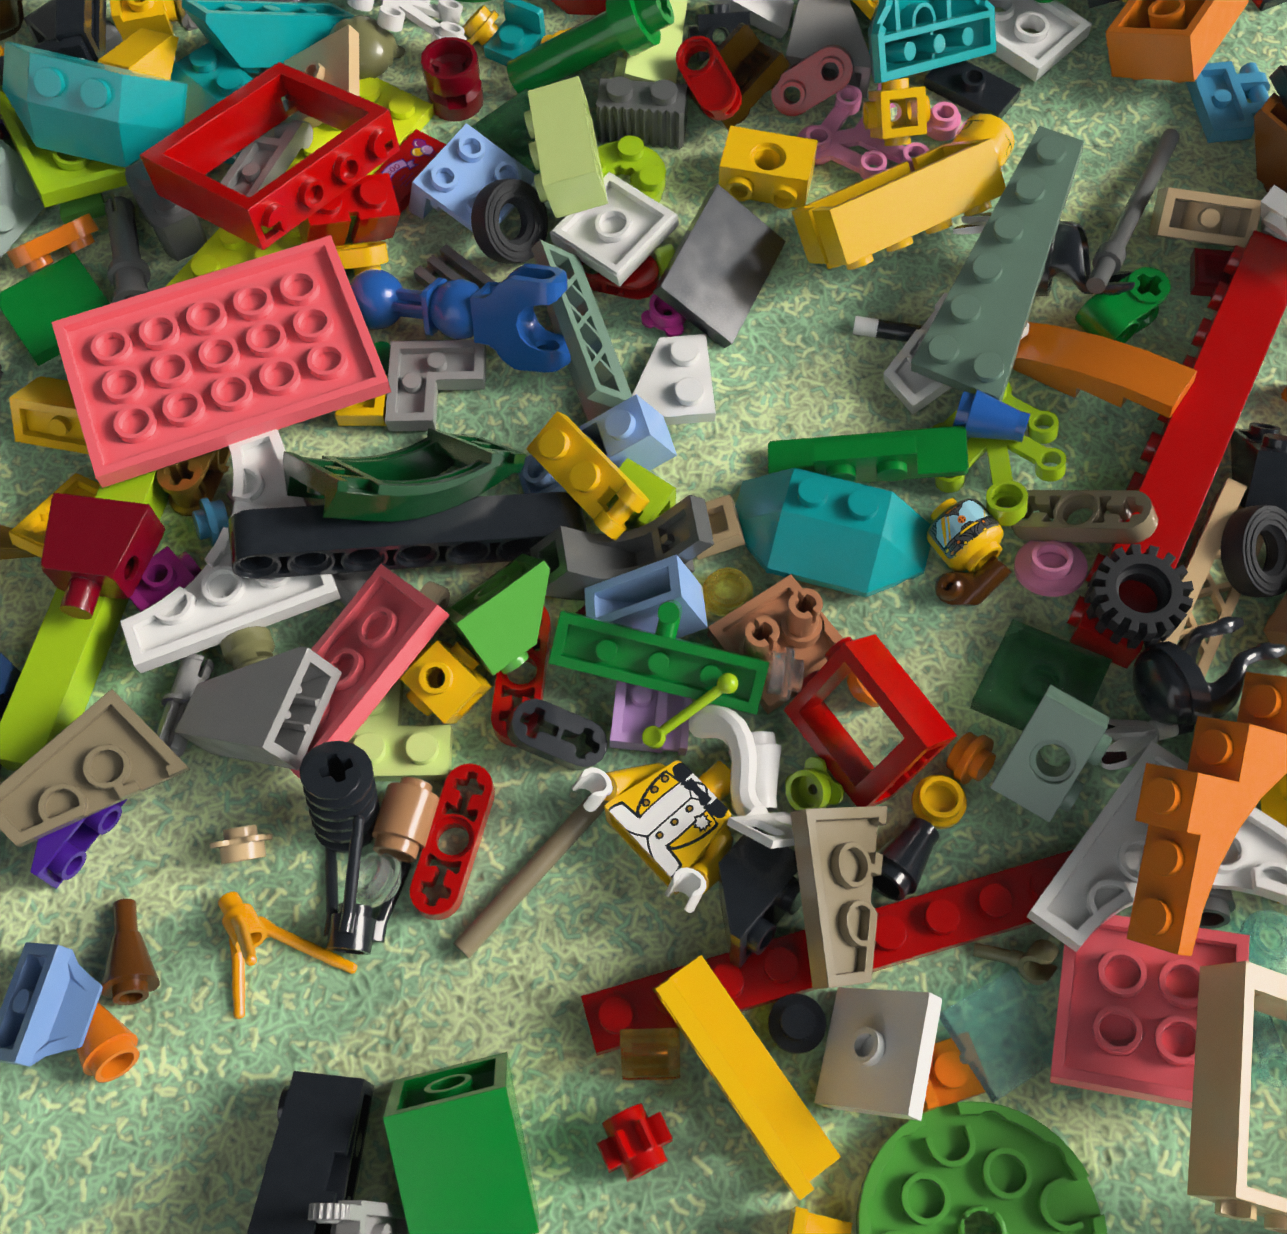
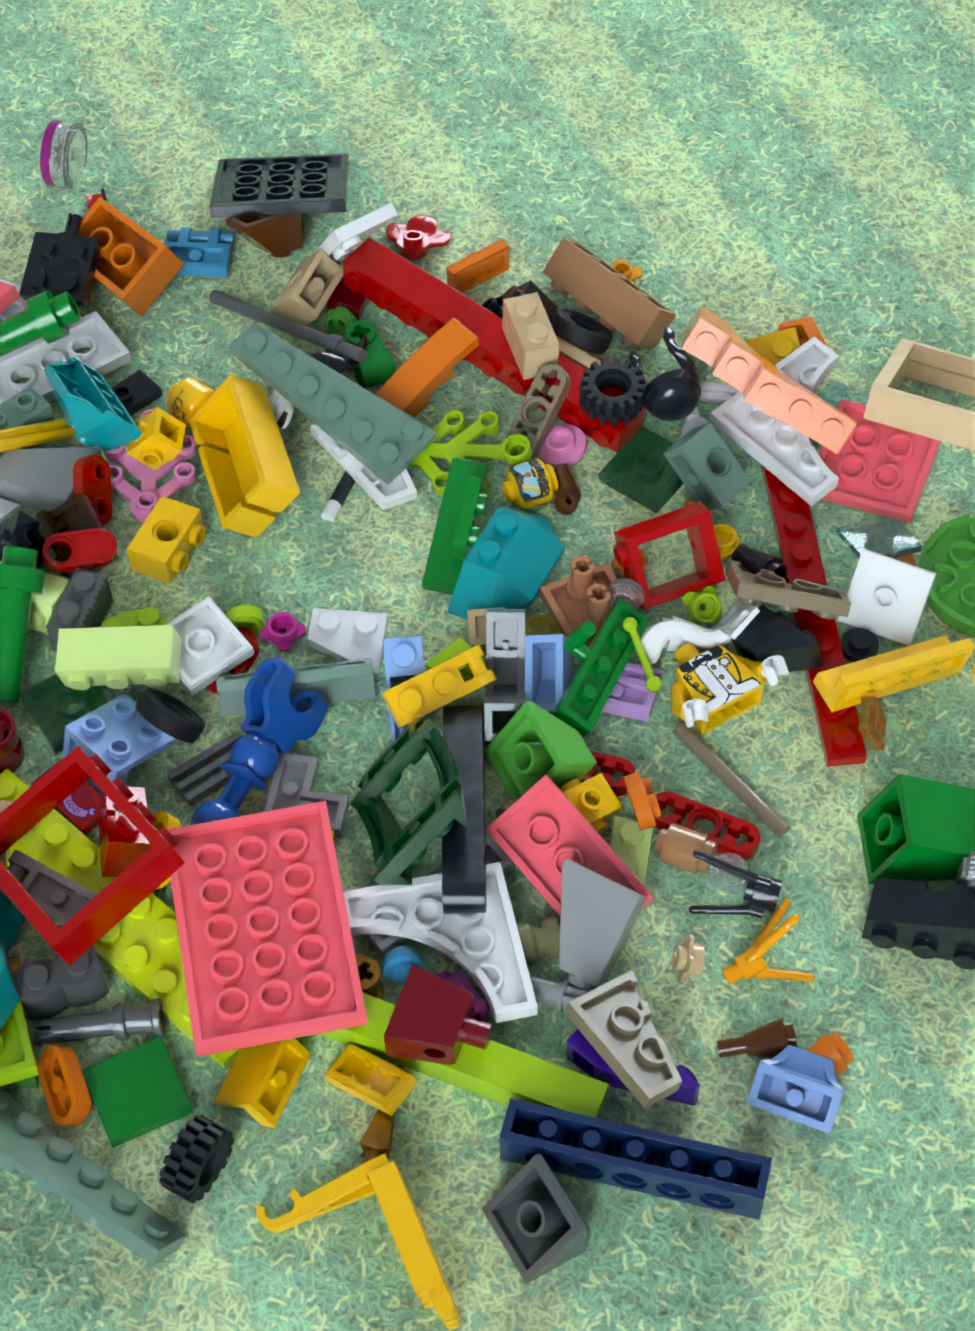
camera: 80 degrees left, 10 degrees down
(337, 787) = (670, 874): black piece -> none
(452, 742) = (642, 800): none -> orange plate
(560, 723) = (633, 742): black beam -> none
(634, 1142) = (928, 738): red gear -> none
(719, 266) = (257, 583): tile -> none
(990, 418) = (446, 445): blue cone -> none
(1033, 964) = (835, 515): olive hand -> none
(1178, 269) = (338, 320): none -> bright green plate
(1197, 466) = (529, 334): none -> tan brick

